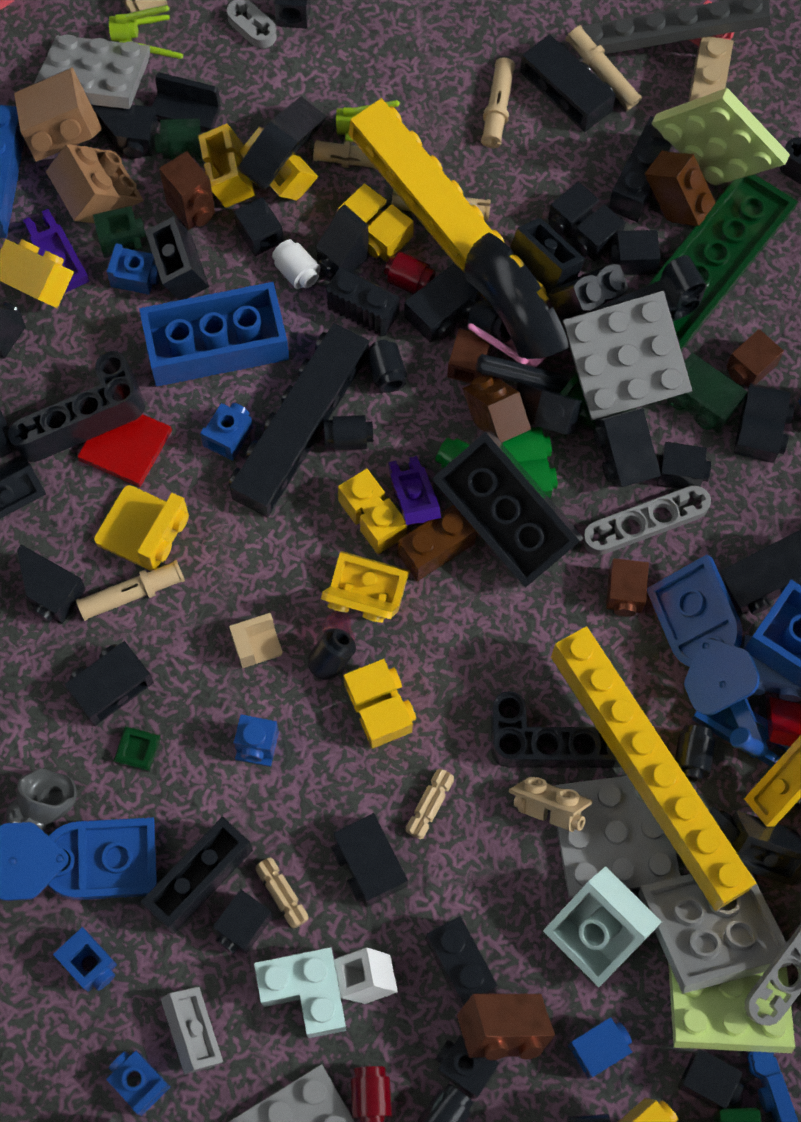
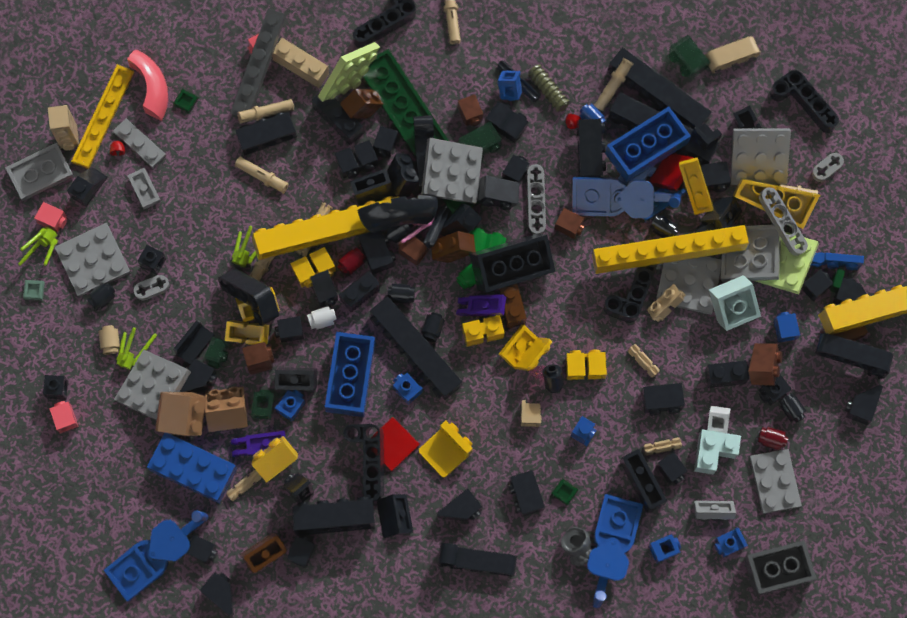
camera: 70 degrees left, 5 degrees up
(145, 584) = (478, 467): tan pin -> none

